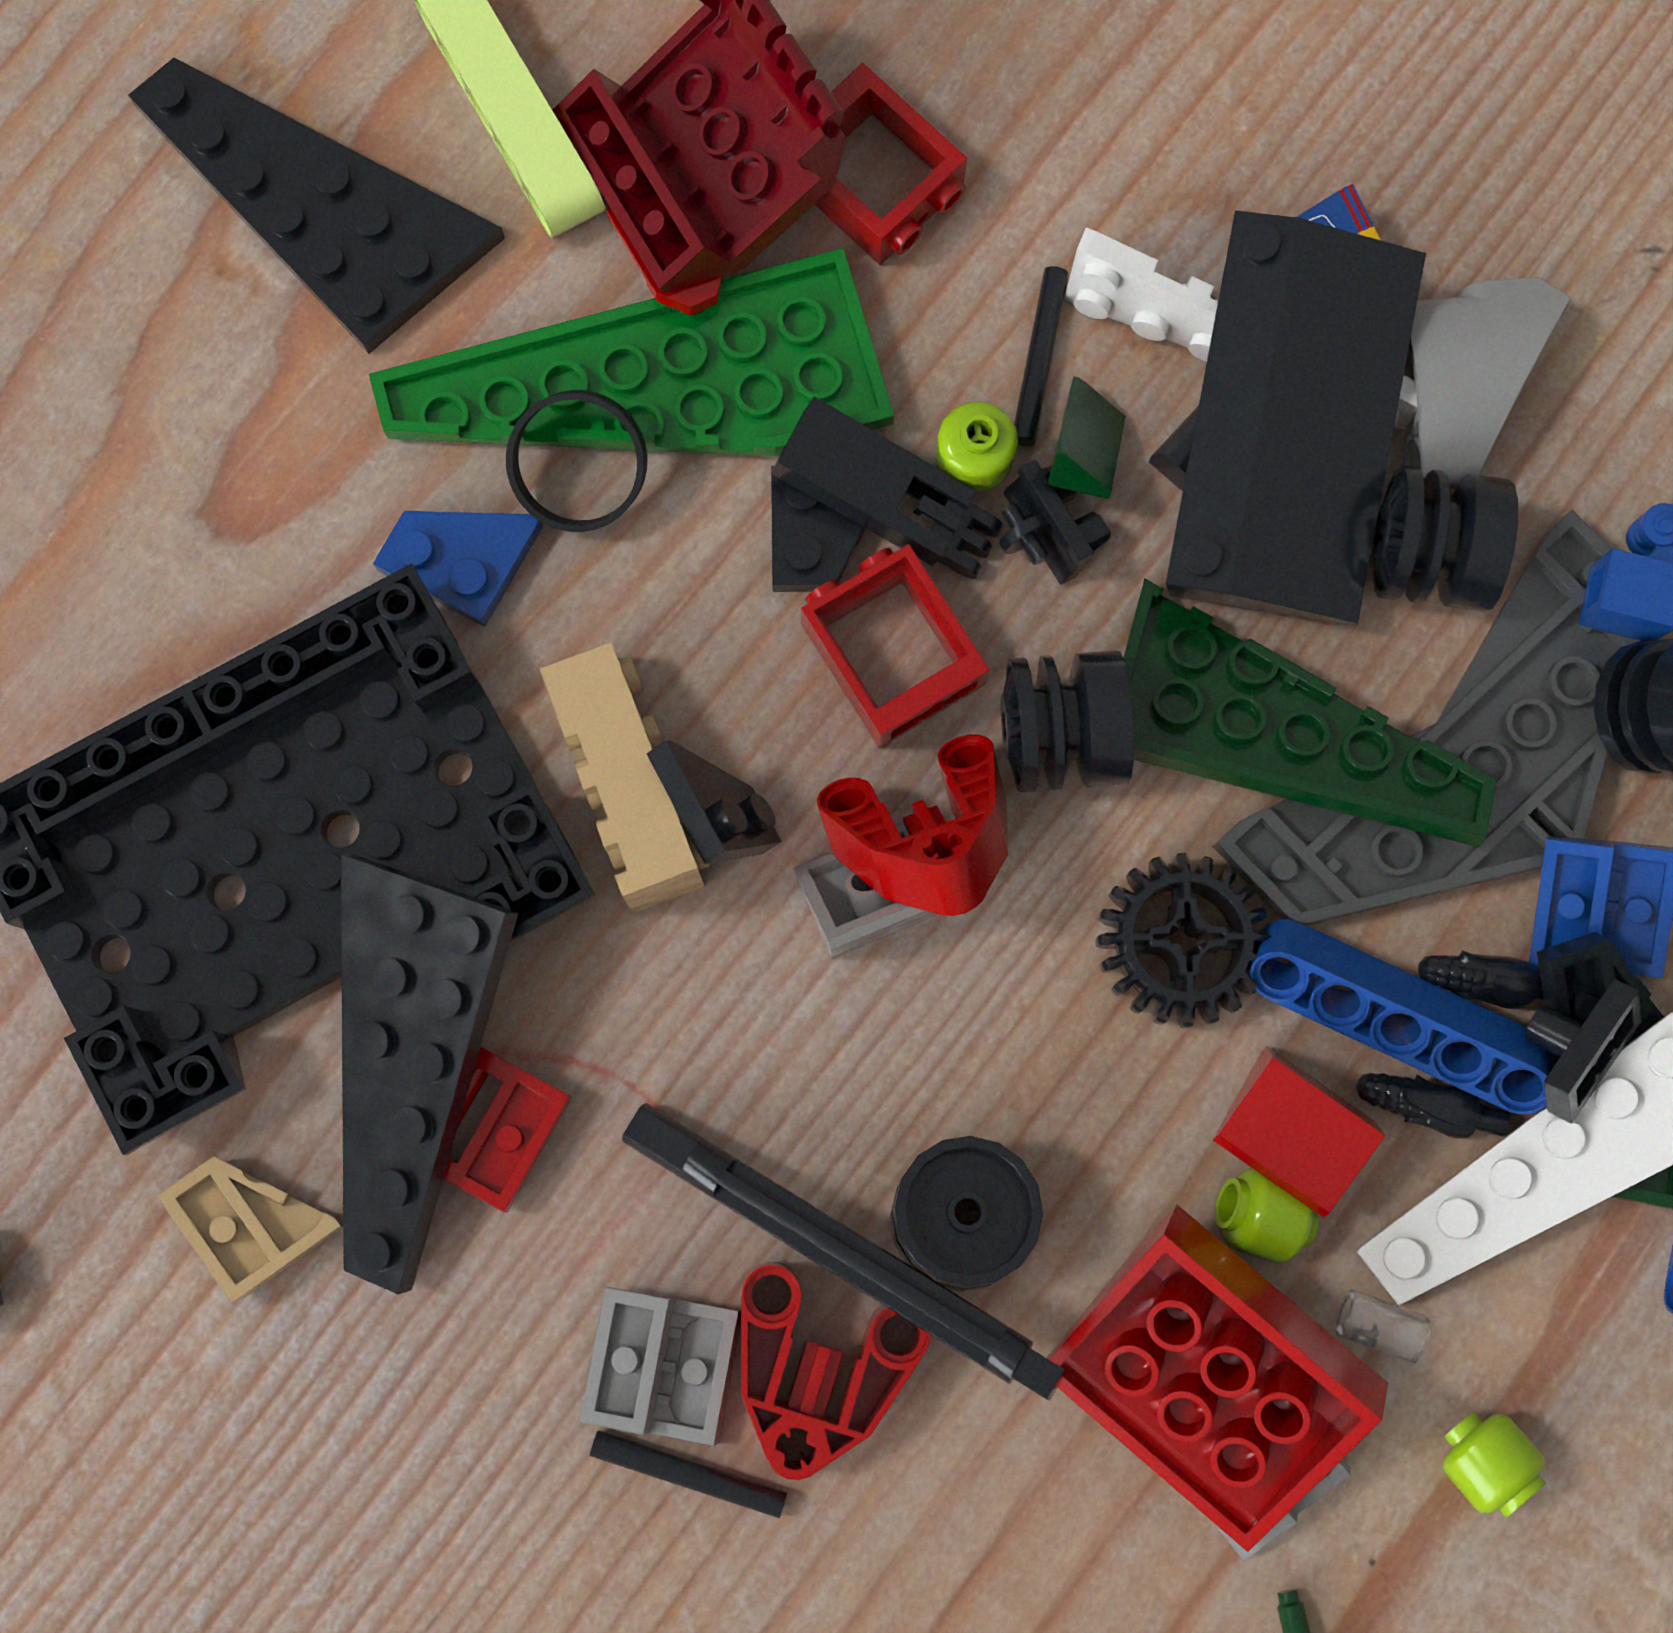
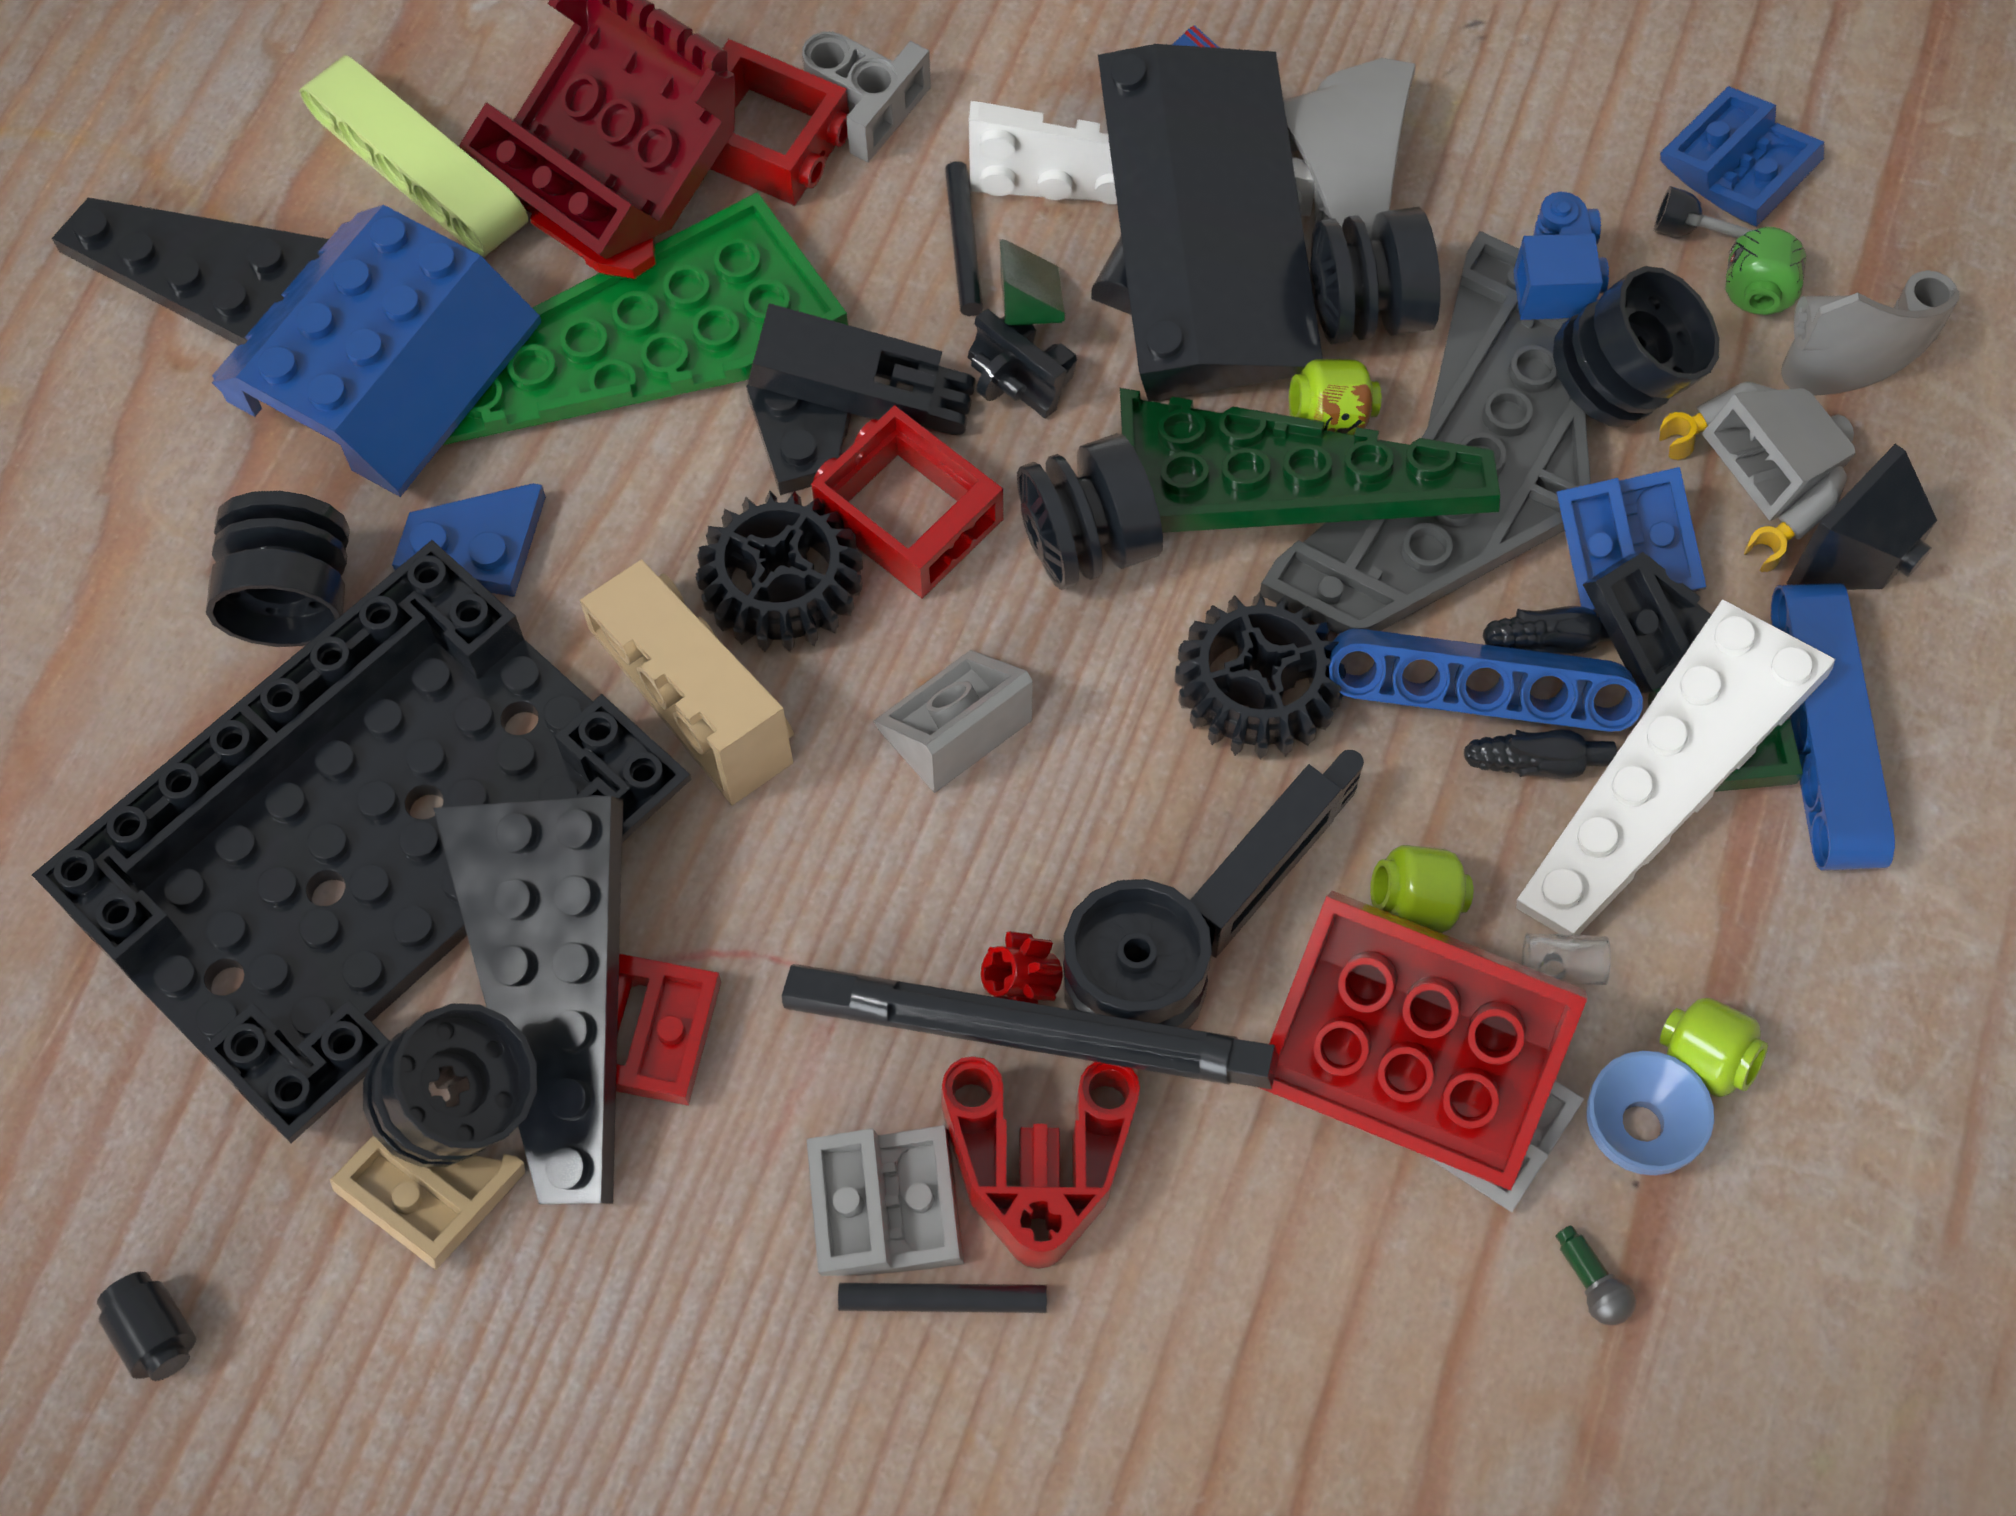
camera: 15 degrees left, 15 degrees down
(260, 537) = (277, 568): none -> black wheel
(305, 1183) = (458, 1049): none -> black wheel
(415, 324) = (382, 344): none -> blue slope
(520, 489) = (544, 362): black tyre -> none
(715, 807) = (794, 679): black wing -> none
(766, 662) = (786, 591): none -> black gear
(855, 1185) = (1022, 969): none -> red gear
(940, 863) = (997, 653): red connector -> none
(977, 445) = (931, 313): lime head -> none
(992, 138) = (877, 88): none -> light grey tile
(1136, 1132) = (1275, 847): none -> black hinge
(1298, 1133) = (1424, 797): red slope -> none
(1358, 657) = (1335, 393): none -> lime head
(1440, 1520) = (1667, 1090): none -> medium blue piece
(1584, 1048) = (1656, 648): black tile -> none

